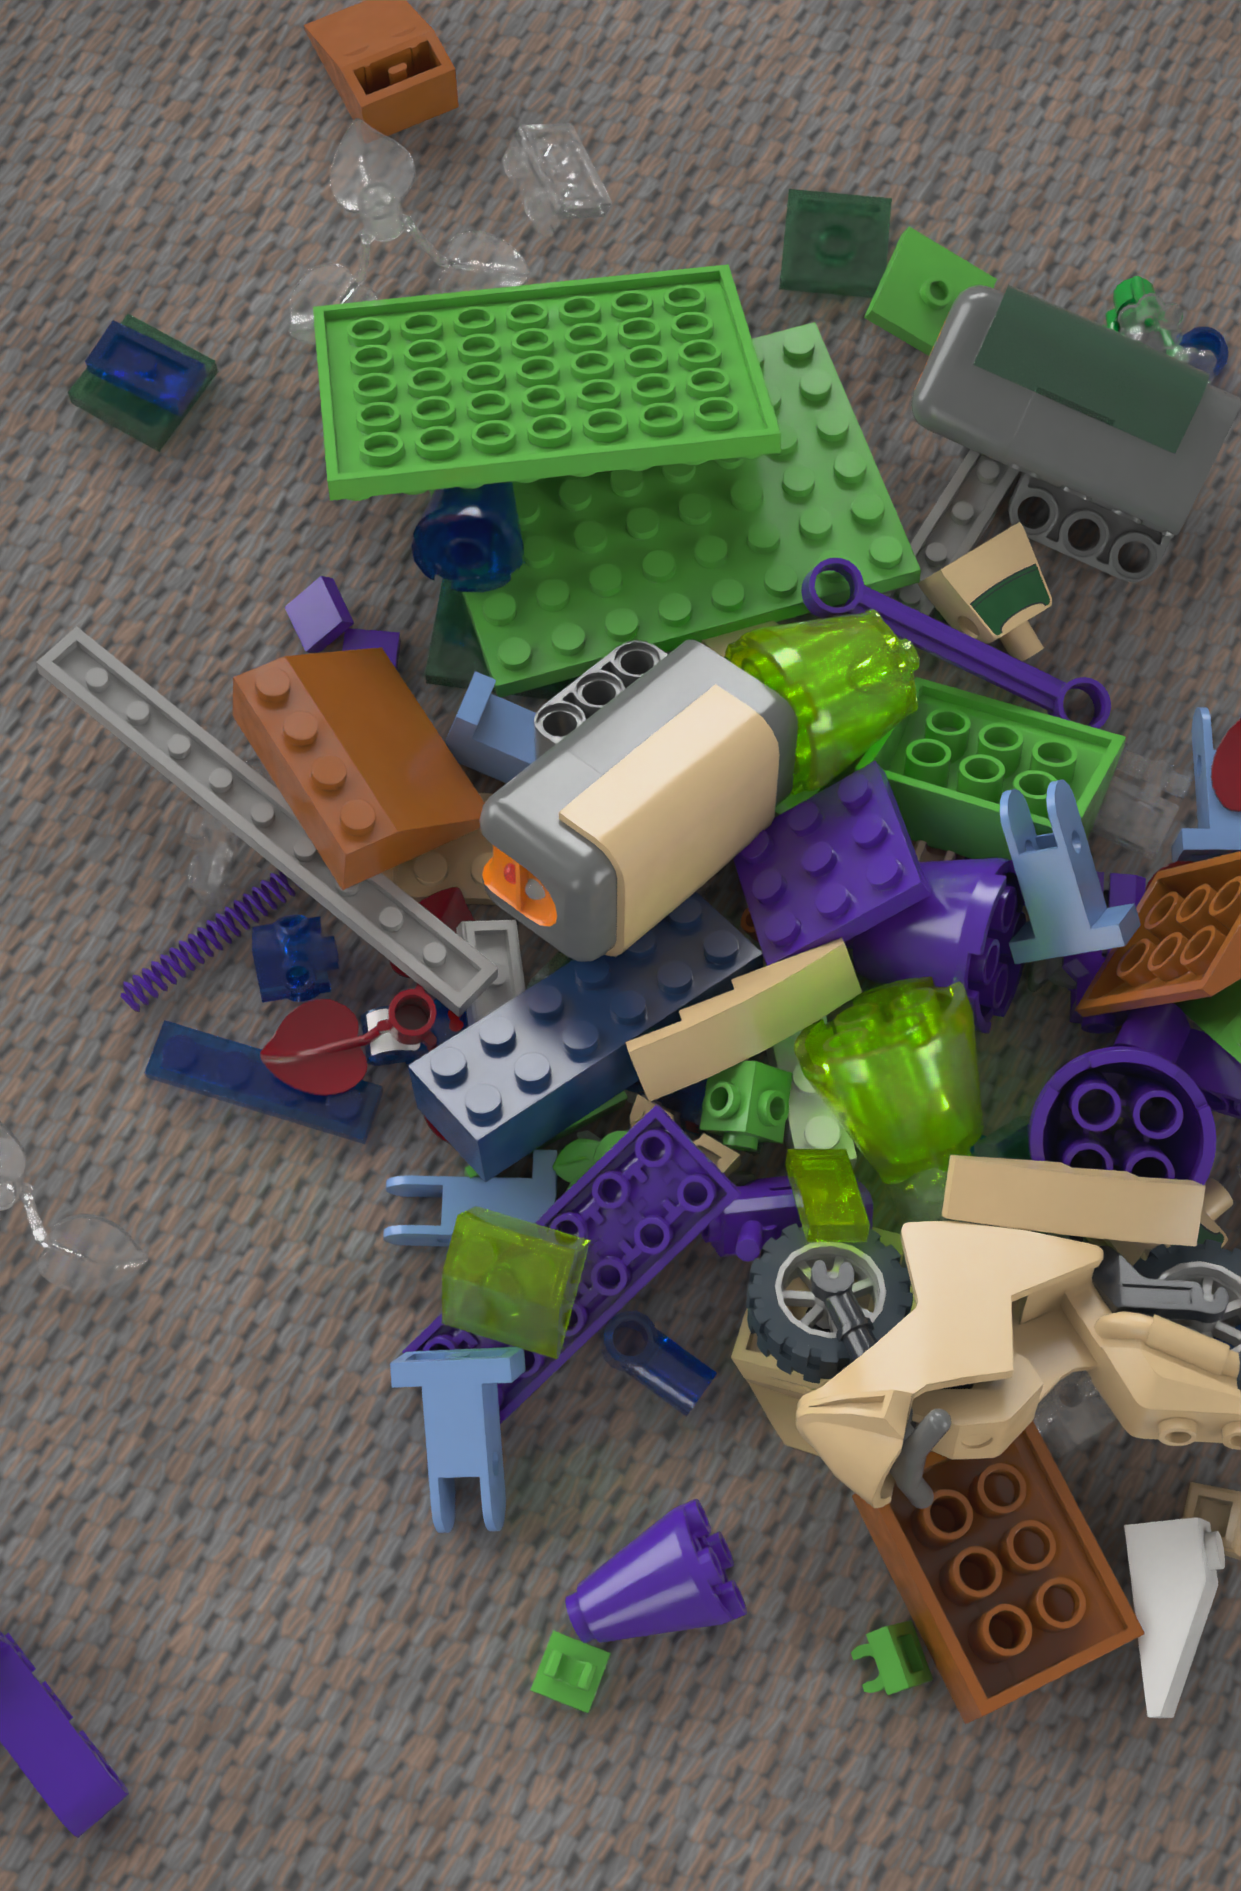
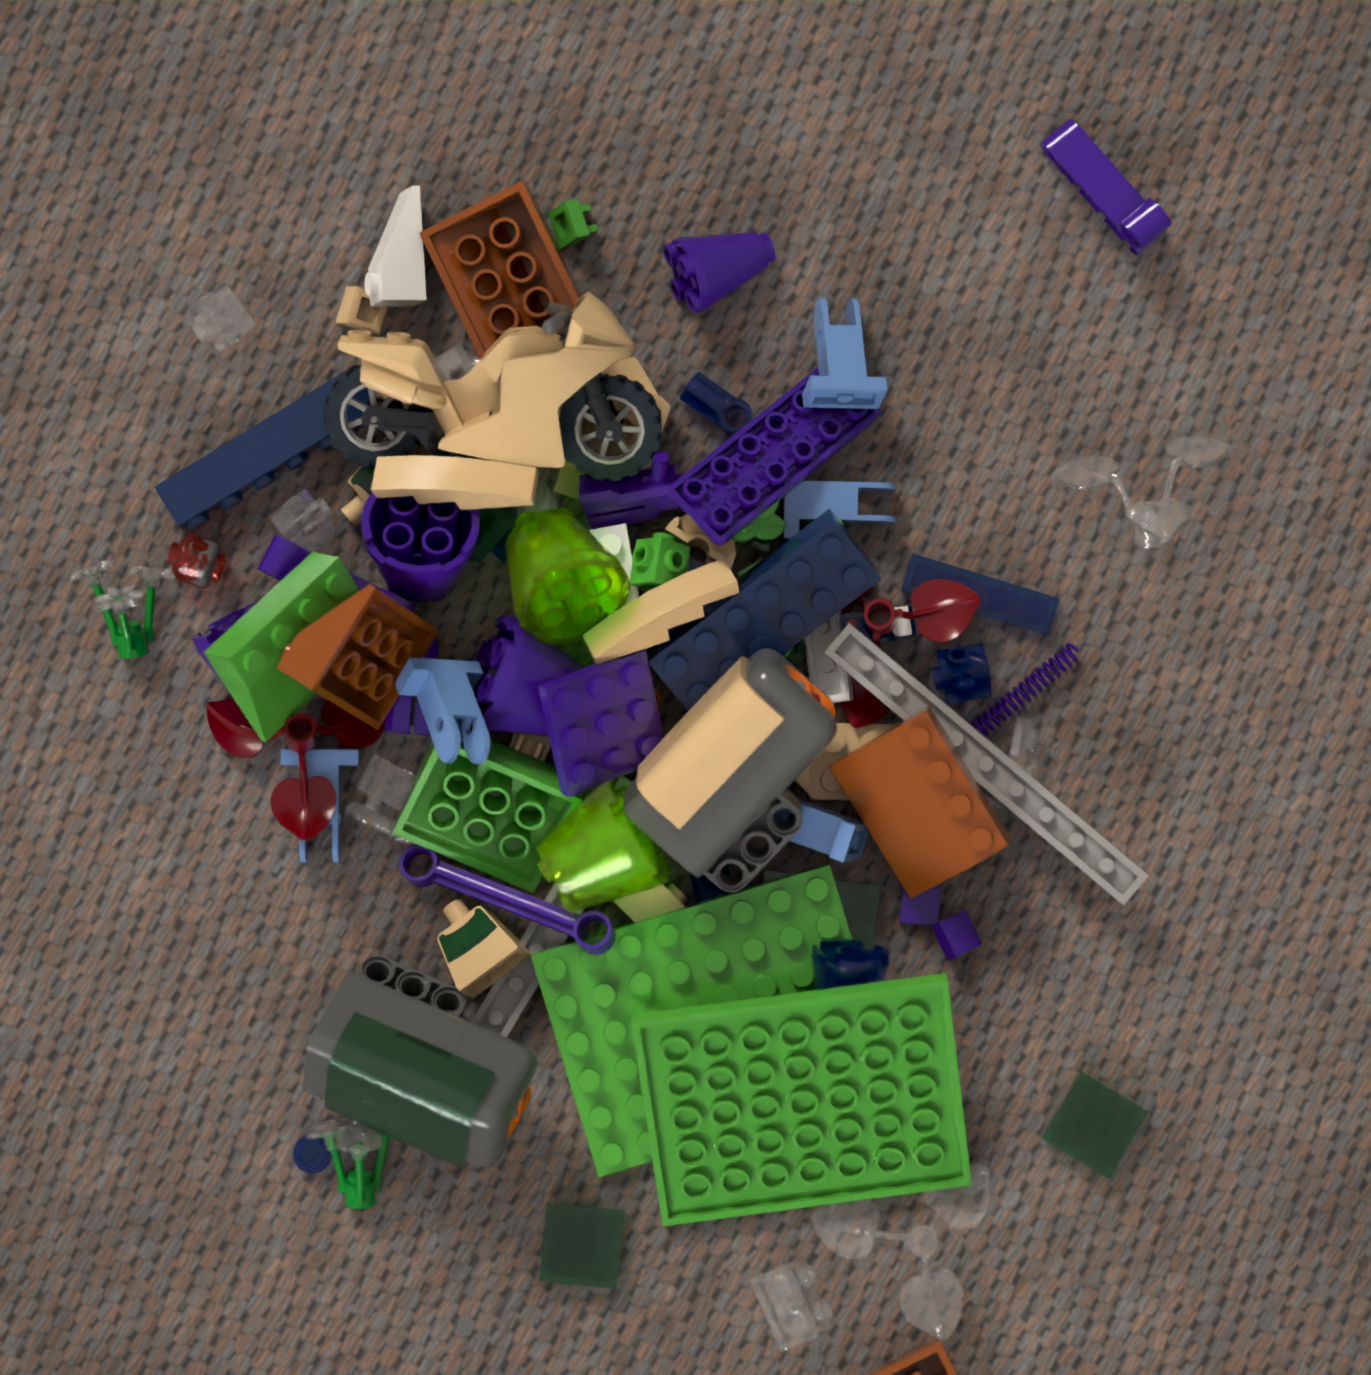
camera: 175 degrees left, 15 degrees up
(146, 368) = (1090, 1123): clear blue plate -> none
(511, 1280) = (809, 443): clear neon green slope -> none
(570, 1672) = (772, 217): bright green tile -> none
(827, 1195) = (609, 495): clear neon green tile -> none
(920, 289) = (513, 1197): bright green plate -> none

